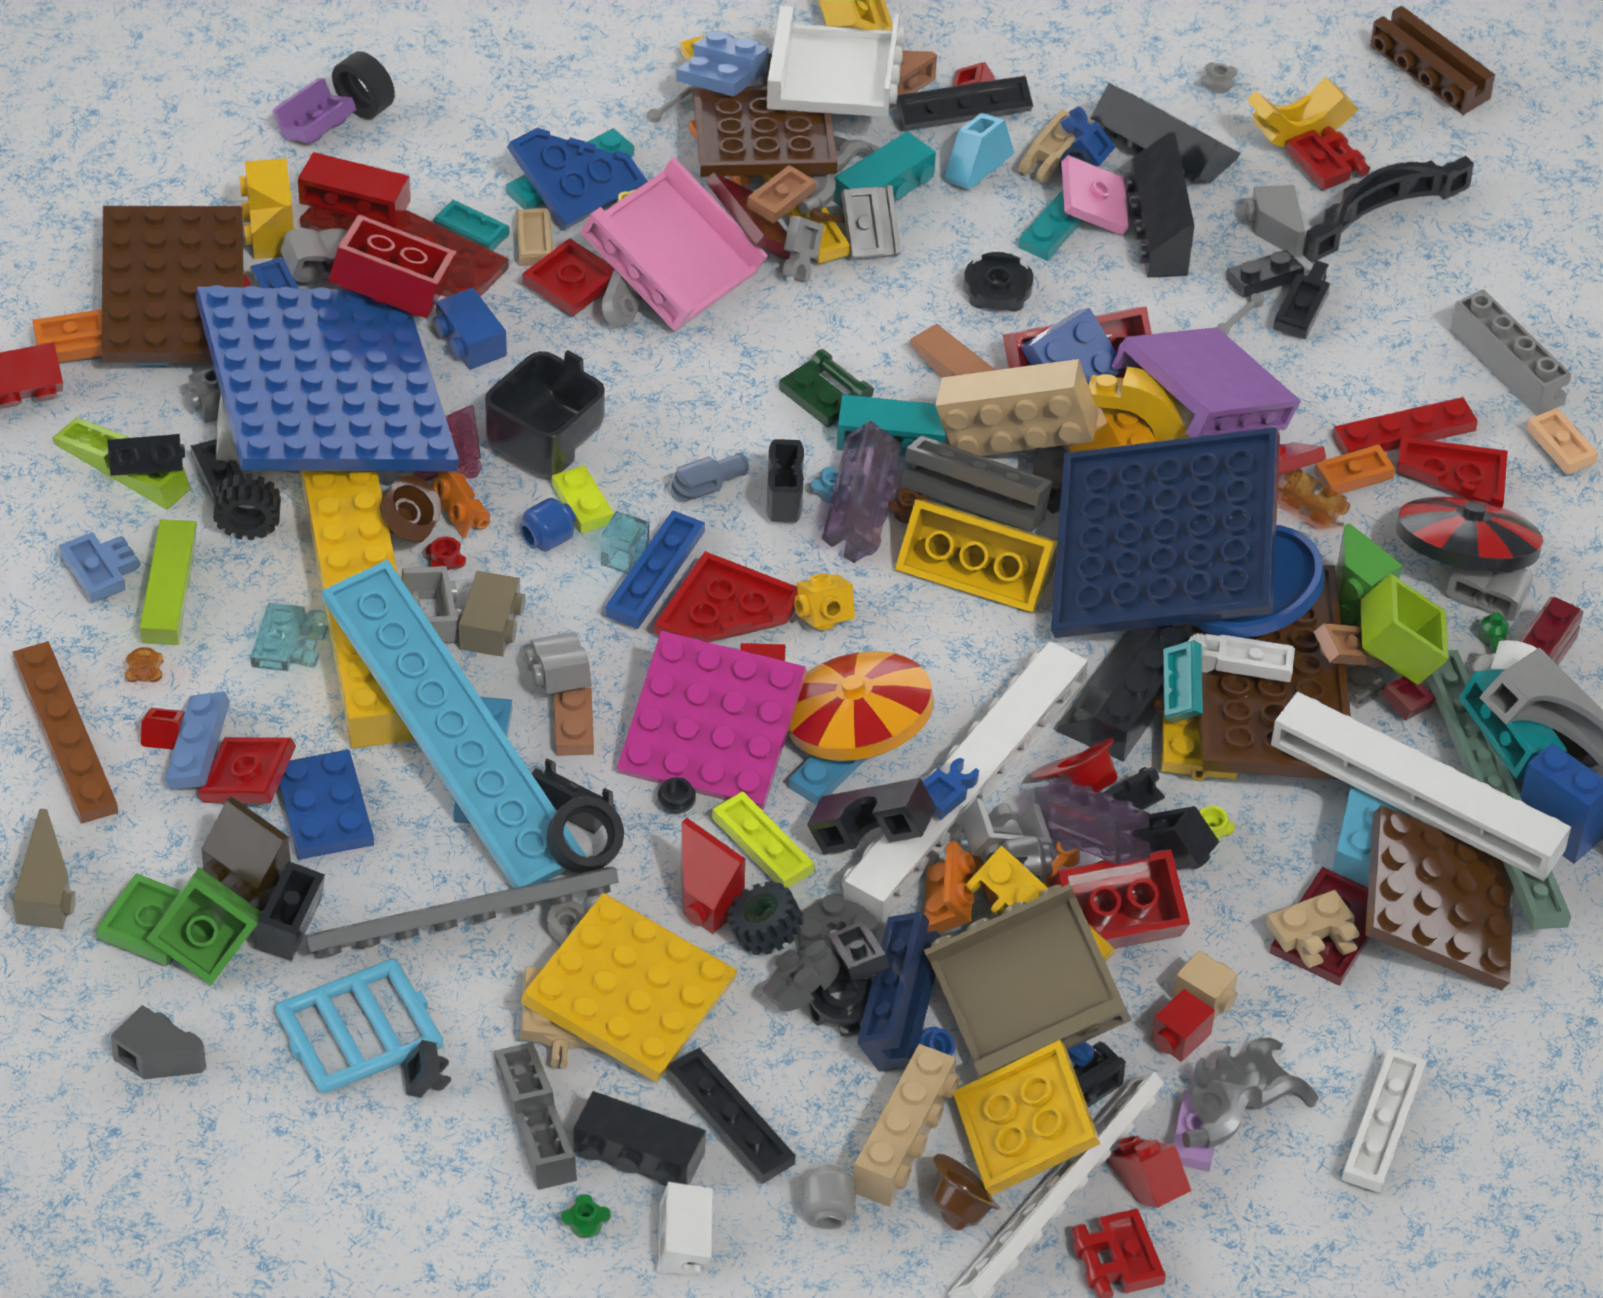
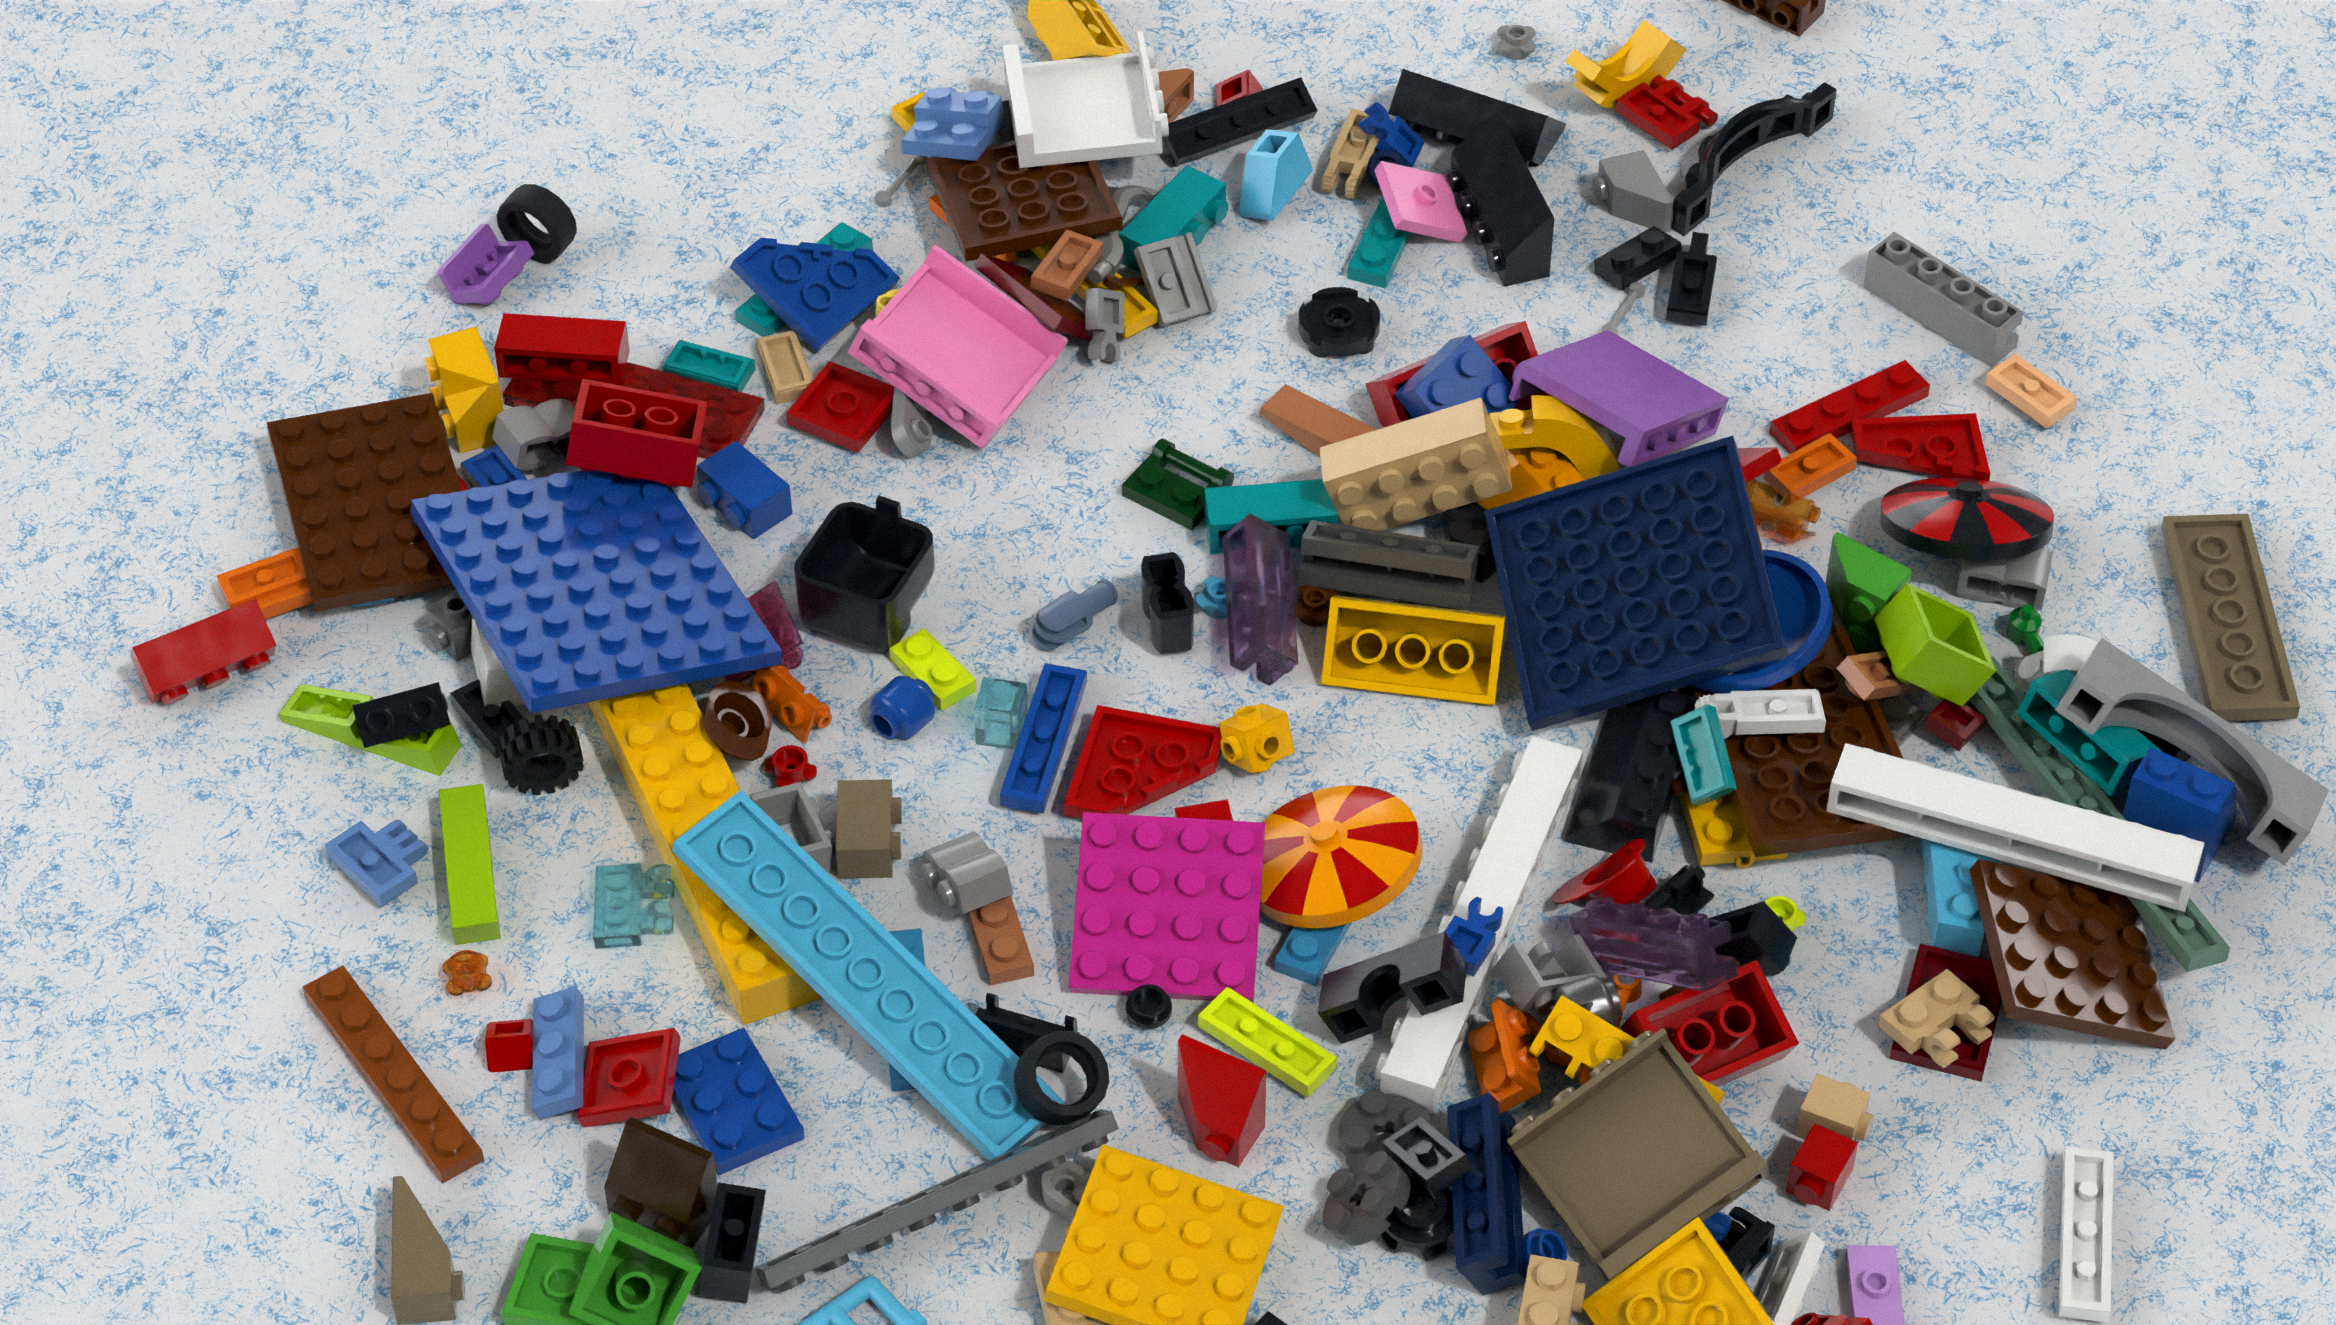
camera: 10 degrees left, 0 degrees up
(765, 918) = (1312, 1149): black wheel -> none
(1238, 1084) = (1906, 1227): flat silver piece -> none
(1554, 628) = (2095, 608): dark red brick -> none

